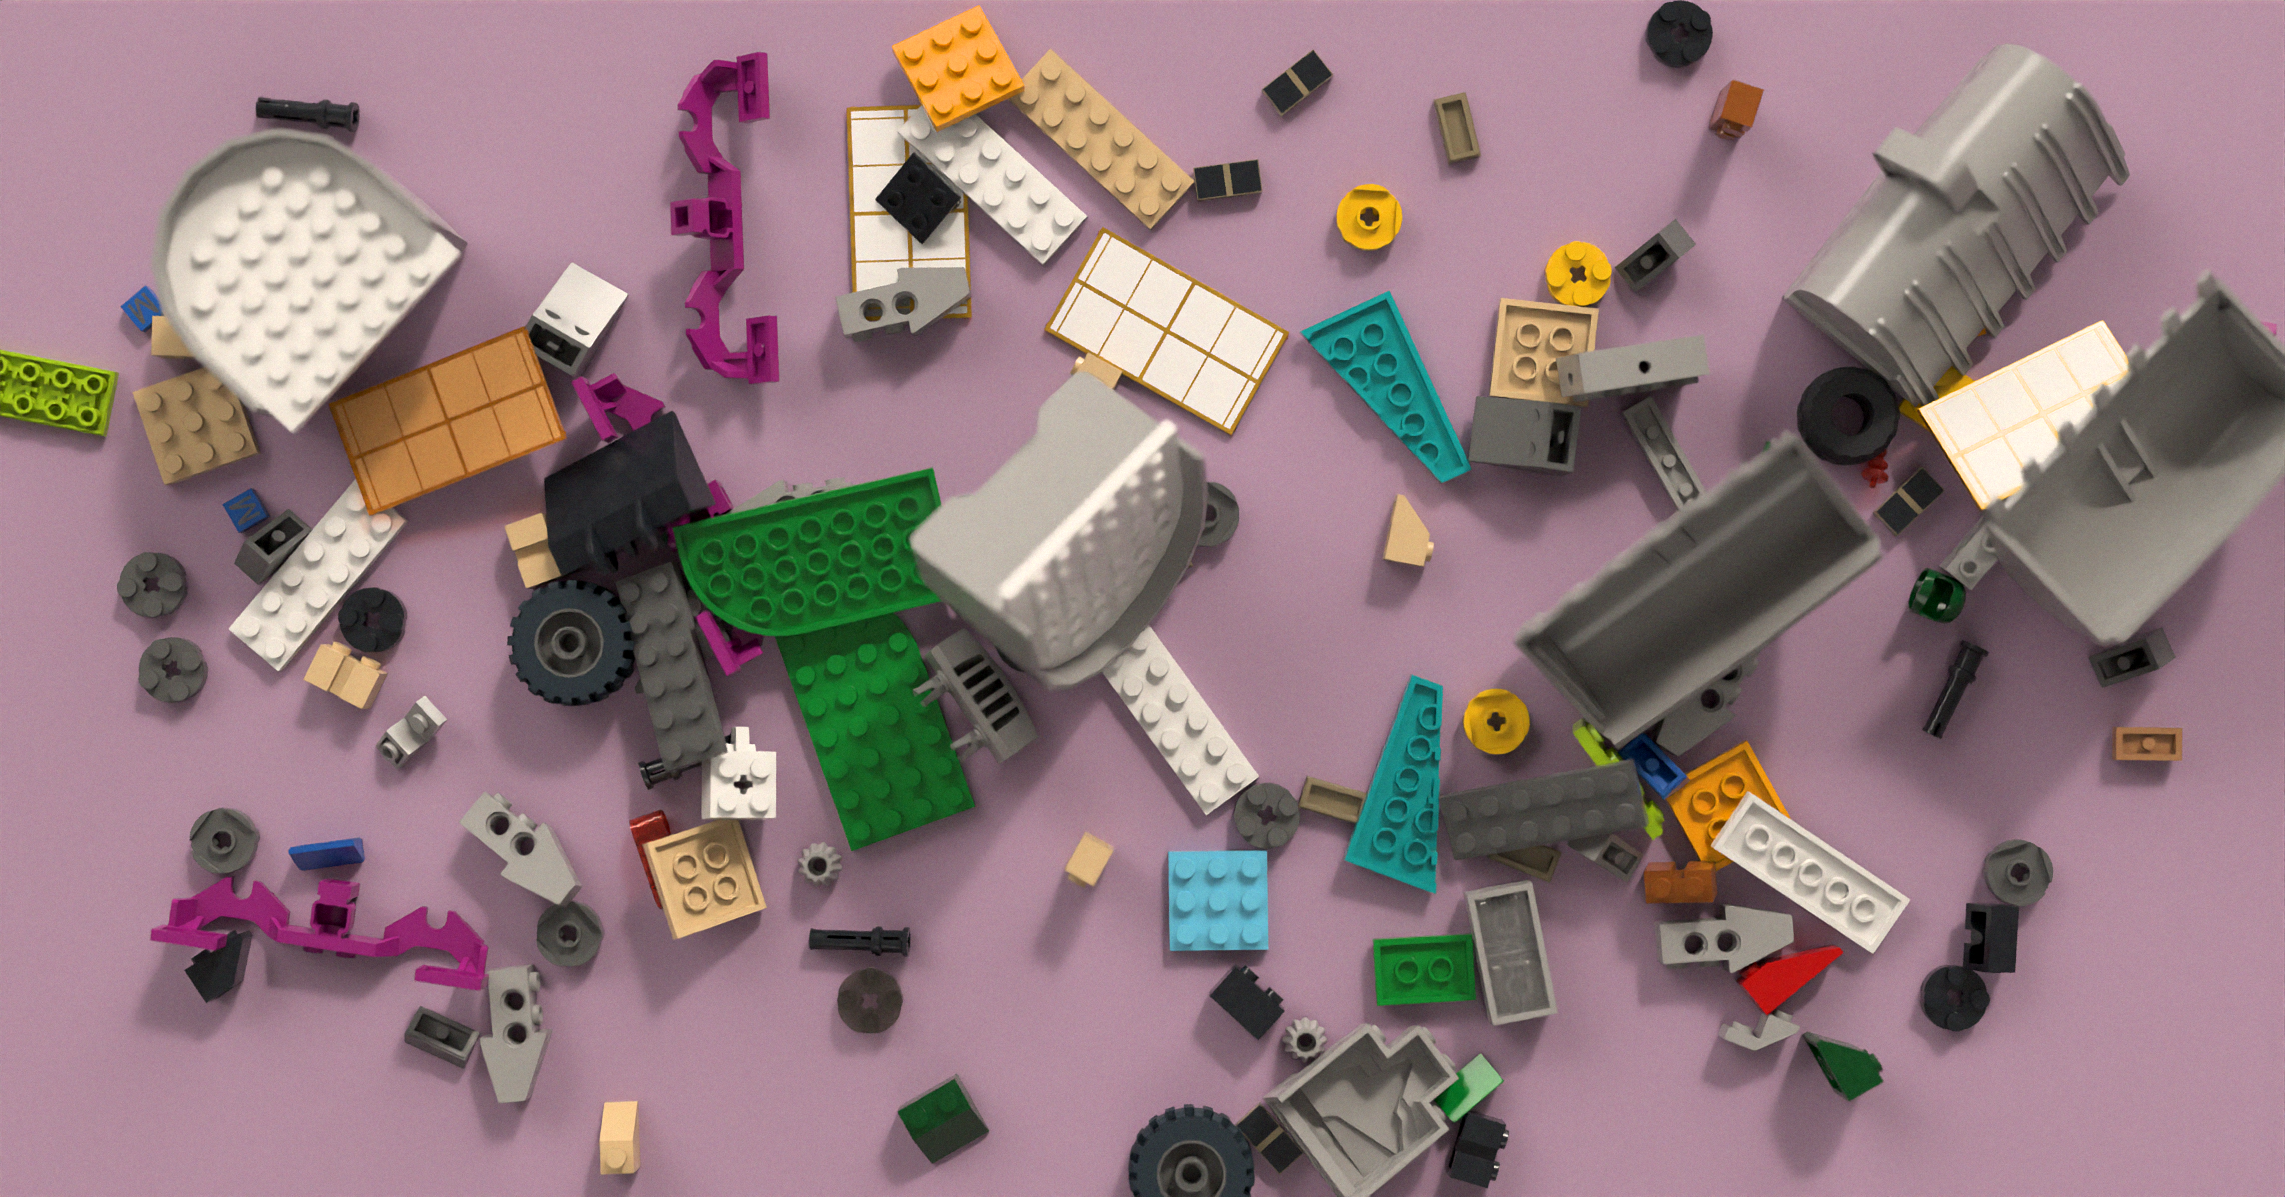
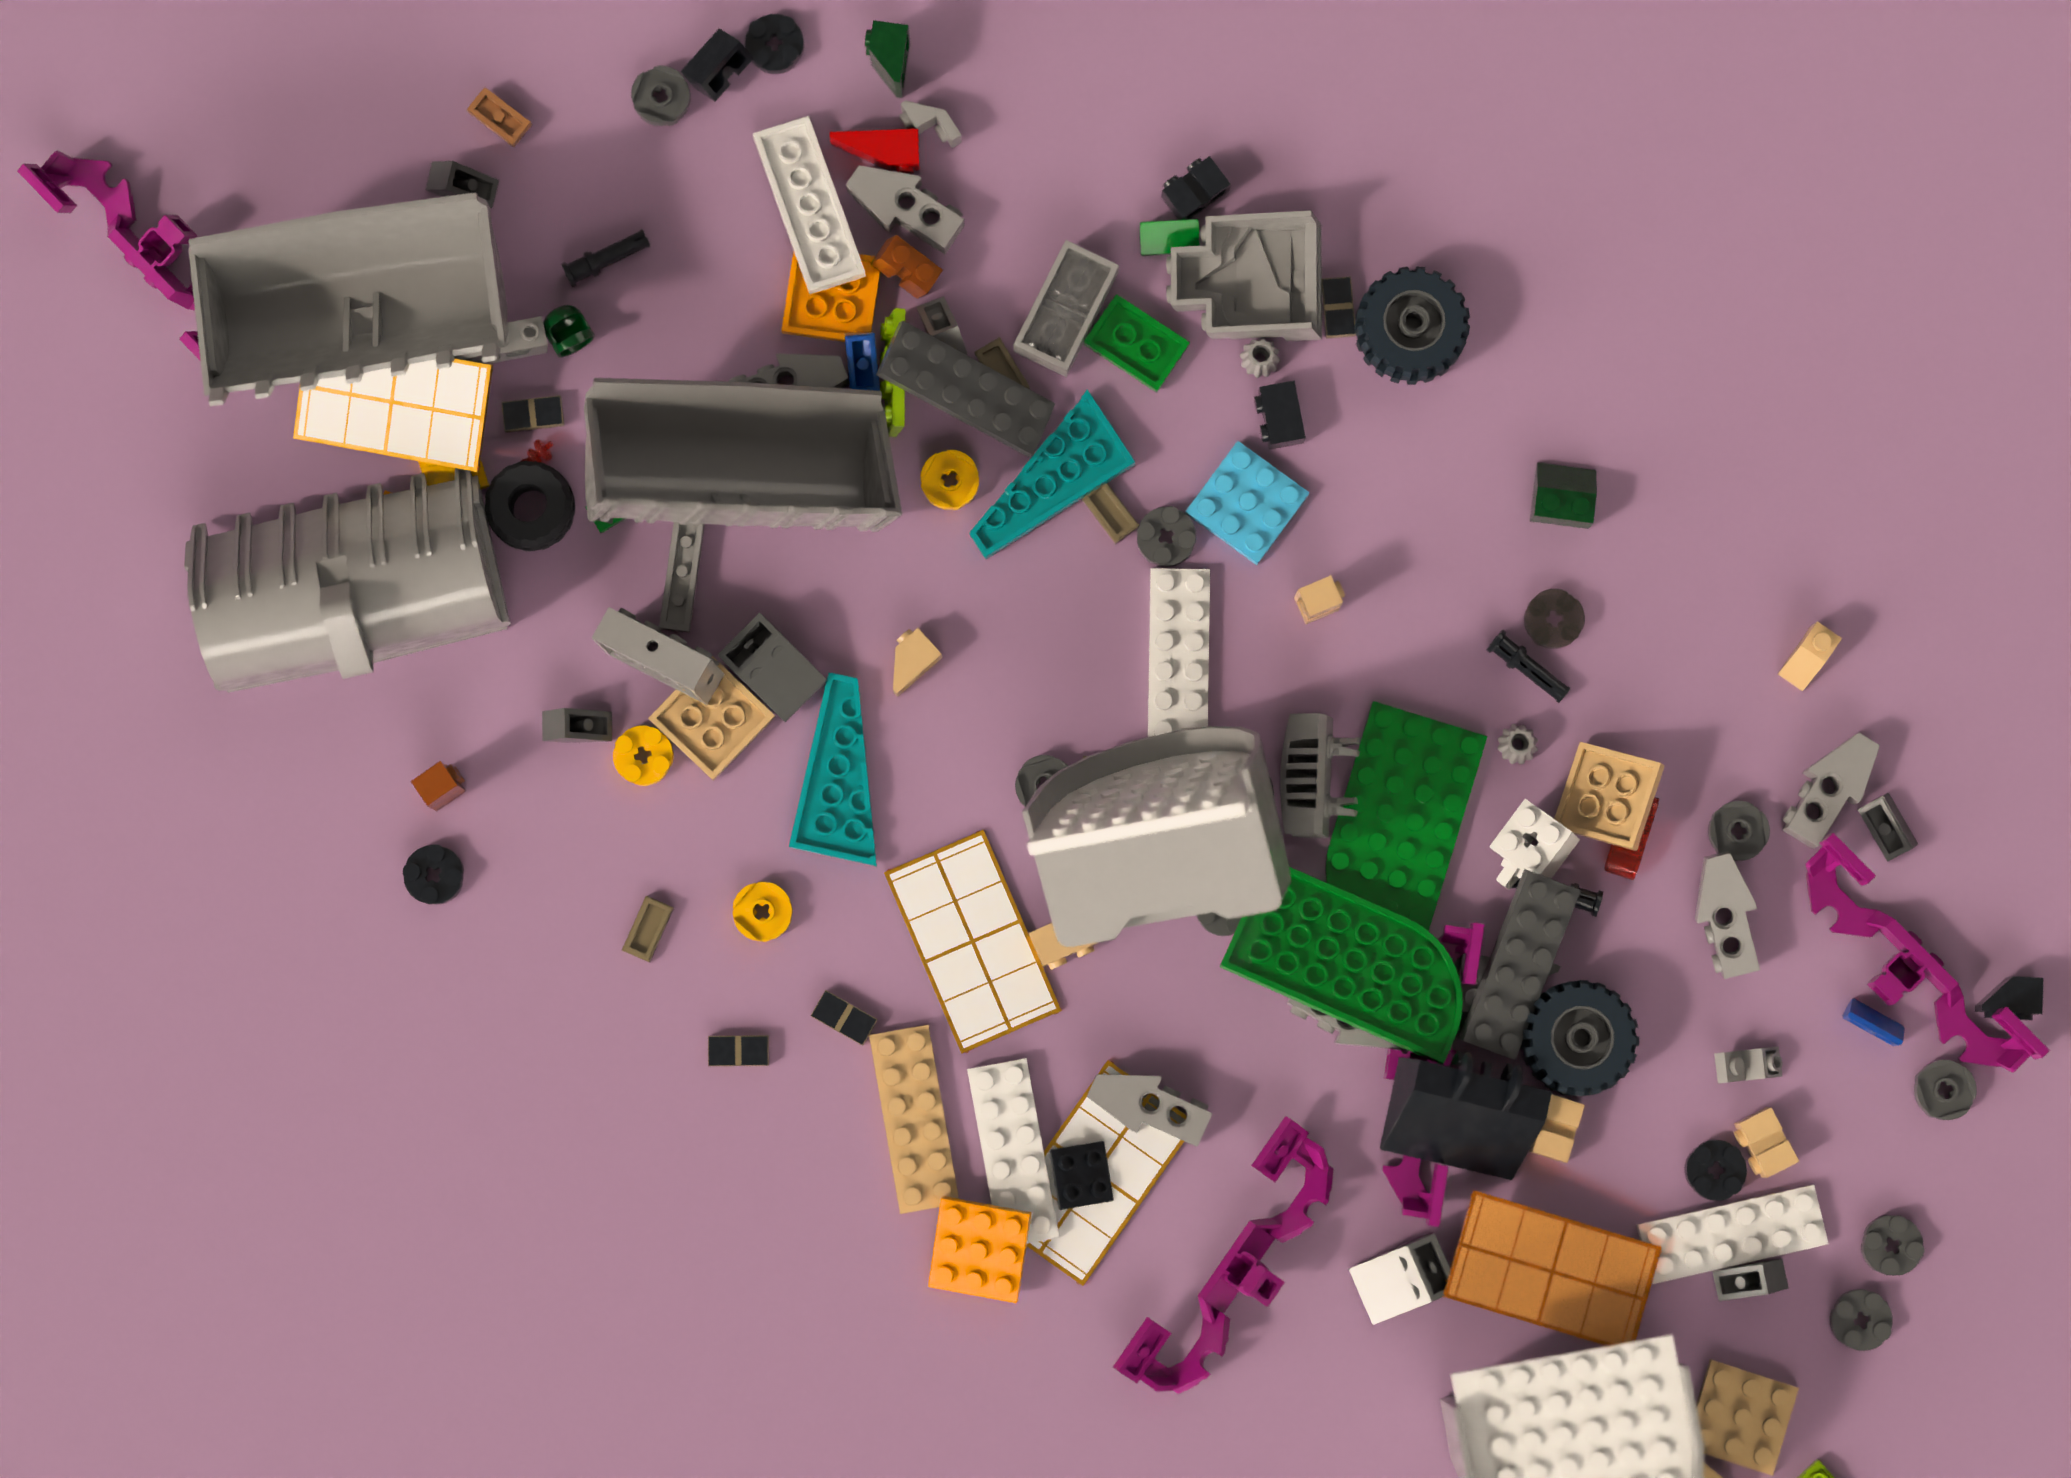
camera: 150 degrees left, 5 degrees down
(246, 510) = (1751, 1323): blue tile -> none

